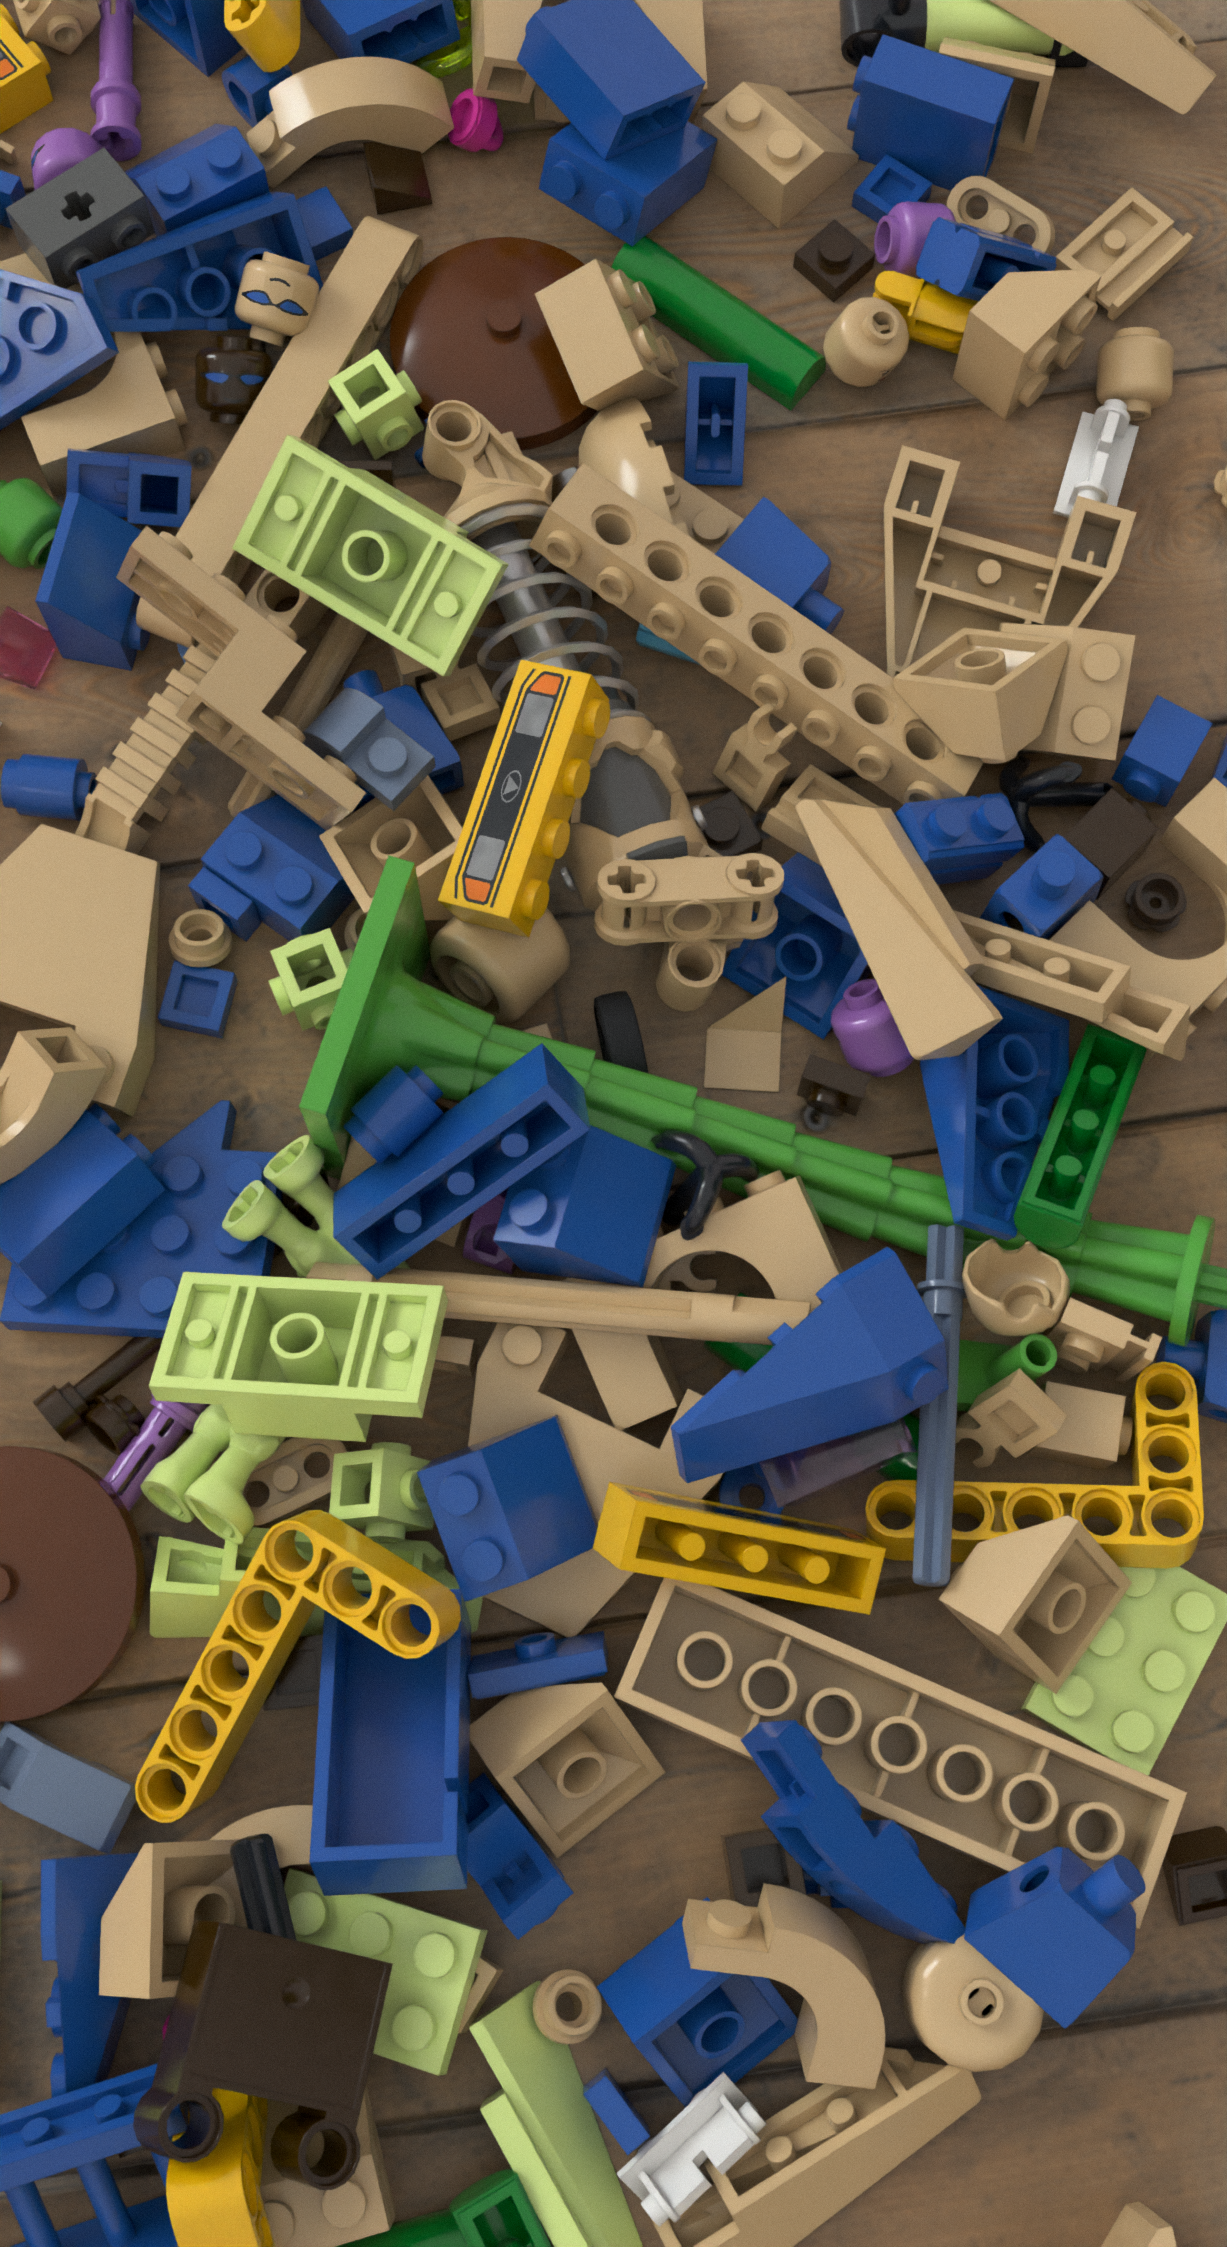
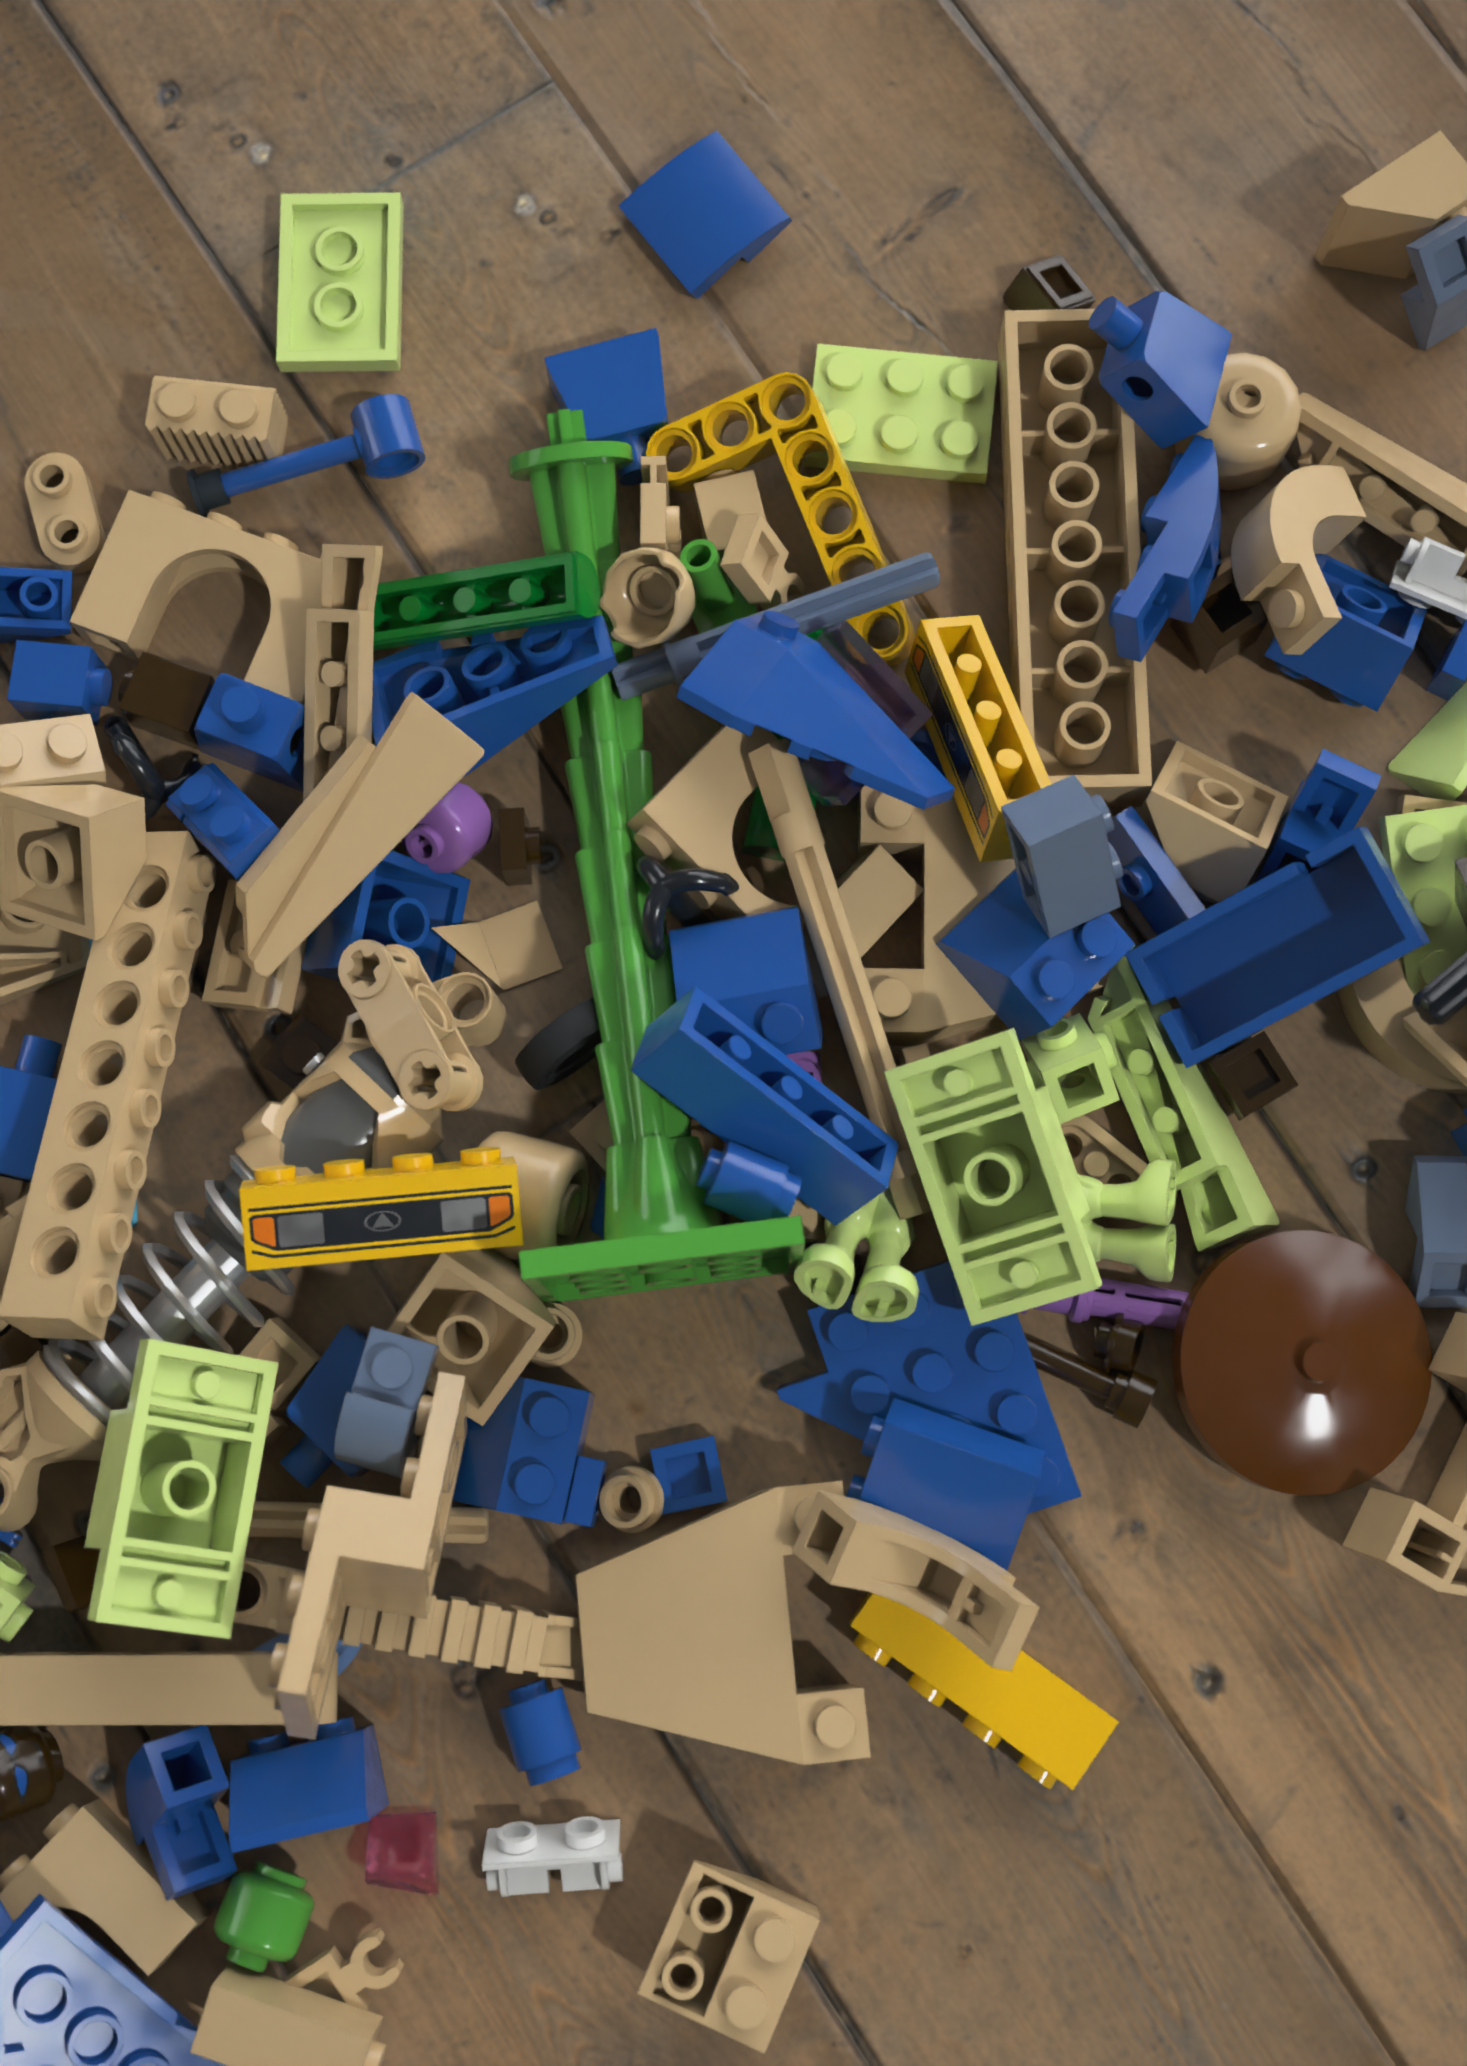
camera: 110 degrees left, 5 degrees up
(267, 1643) = (1250, 1095): yellow beam -> none
(310, 977) = (605, 1345): yellowish green brick -> none
(570, 1551) = (1064, 854): none -> sand blue brick
(586, 2007) = (1399, 718): tan plate -> none
(752, 760) = (223, 1048): tan plate -> none
(1037, 1597) = (903, 487): tan slope -> none
(1166, 891) = (198, 627): dark brown plate -> none

